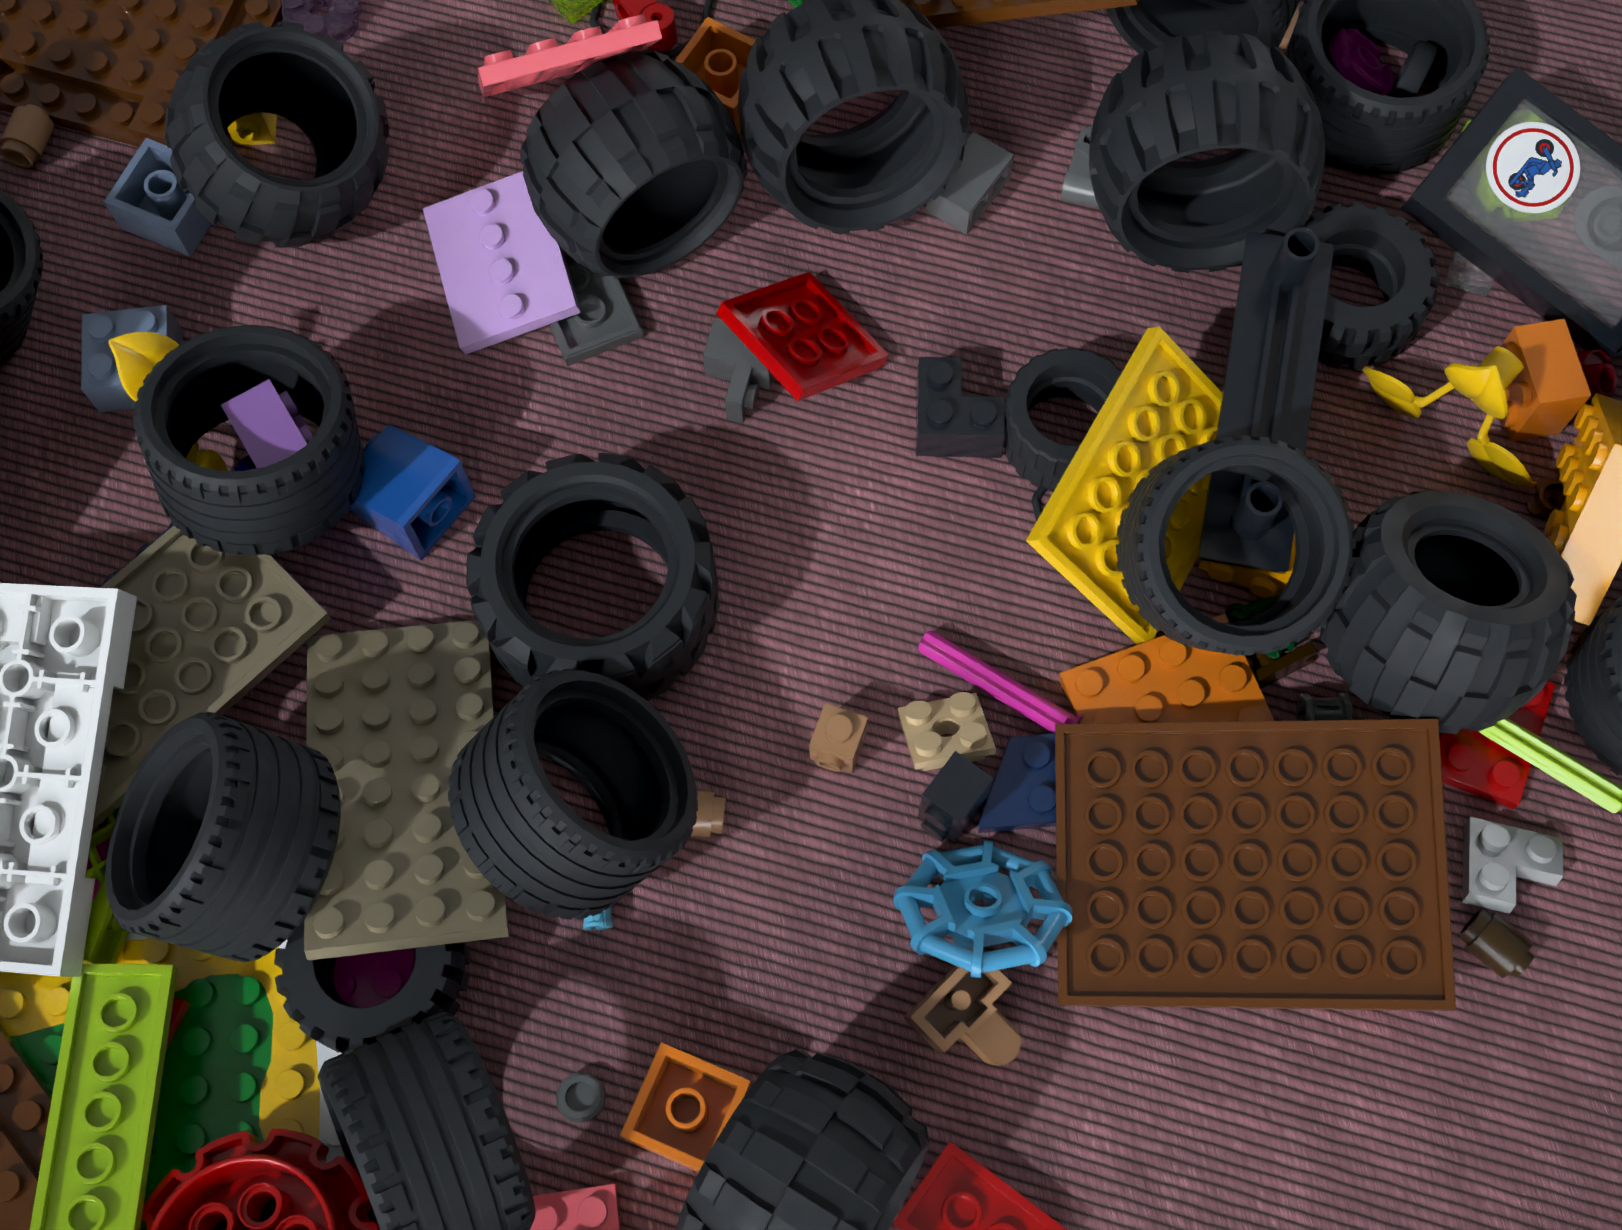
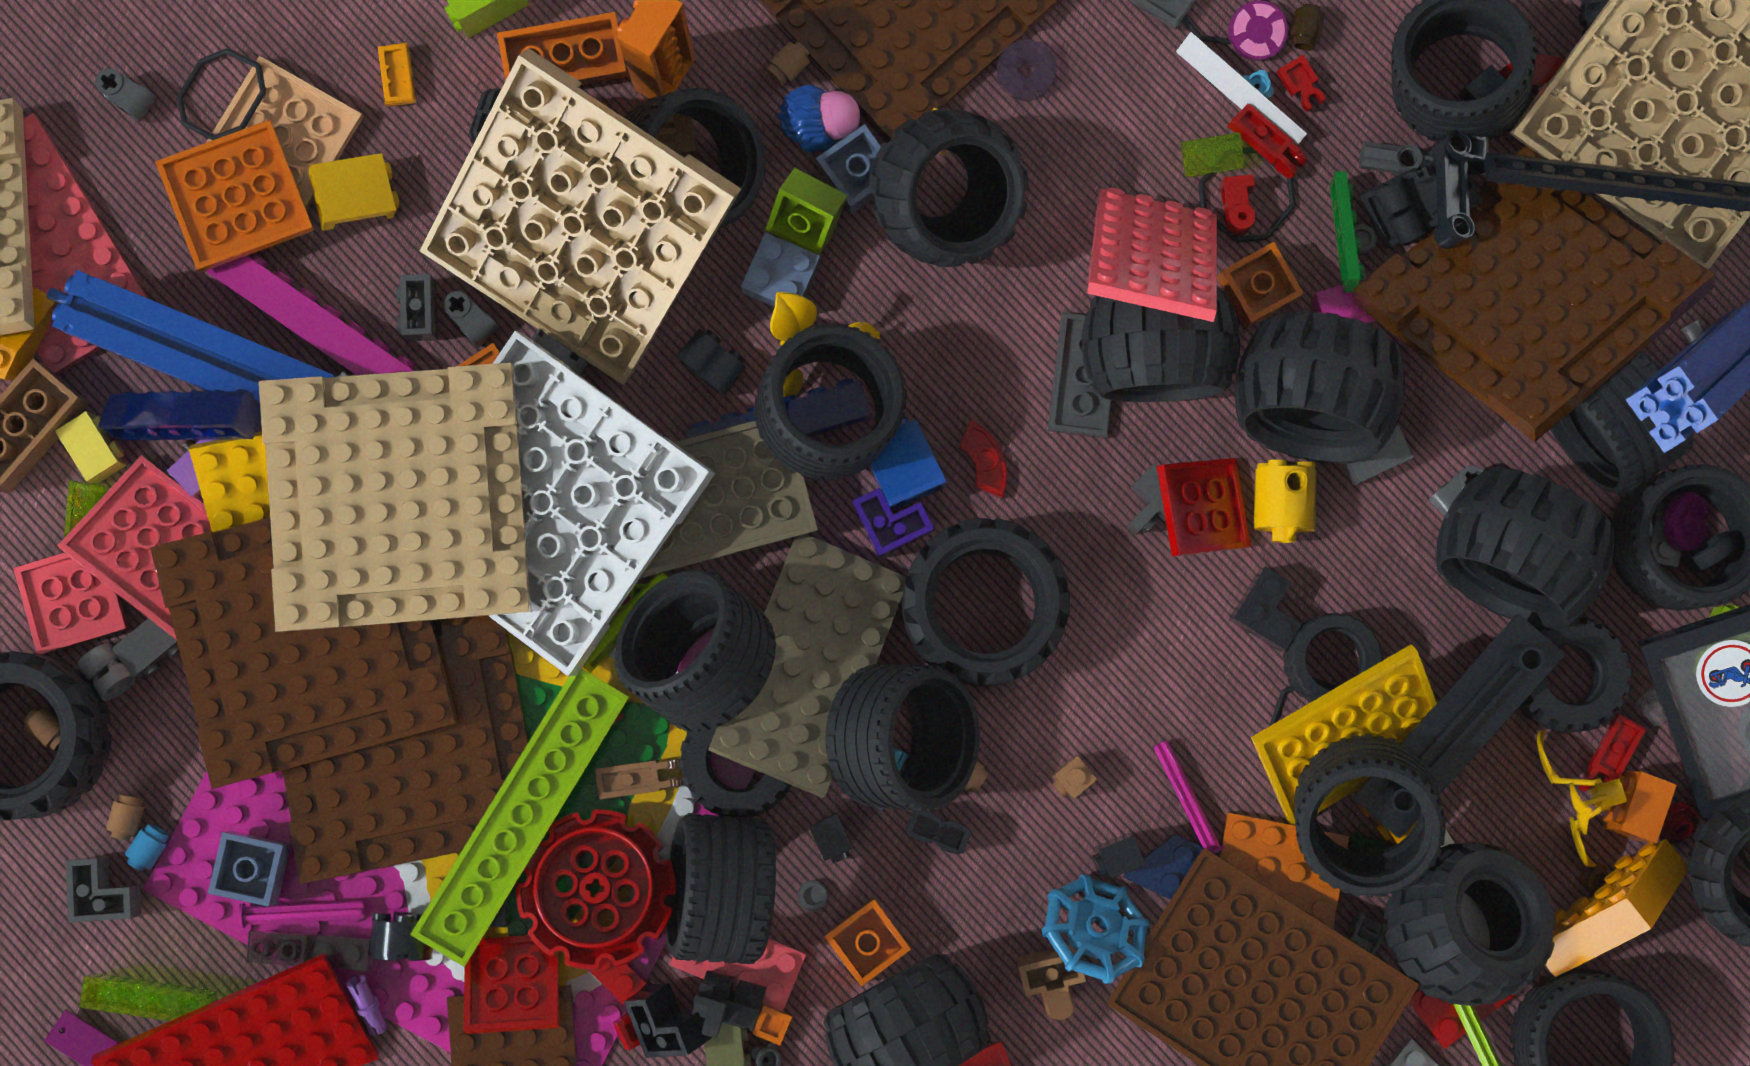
camera: 25 degrees right, 15 degrees up
(84, 163) = (818, 117): none -> blue hair
(93, 503) = (711, 361): none -> black brick
(122, 264) = (806, 211): none -> lime brick
(244, 1078) = (634, 778): none -> medium nougat hinge
(267, 424) = (842, 406): medium lavender brick -> none
(424, 571) = (890, 531): none -> dark purple brick
(498, 264) = (1041, 337): lavender plate -> none
(507, 431) = (987, 458): none -> red tile
(559, 996) = (831, 838): none -> black brick
(687, 908) = (946, 833): none -> black brick
(894, 274) = (1285, 499): none -> yellow cylinder
(956, 715) = (1151, 801): tan piece -> none
(1460, 339) = (1614, 750): none -> red hinge

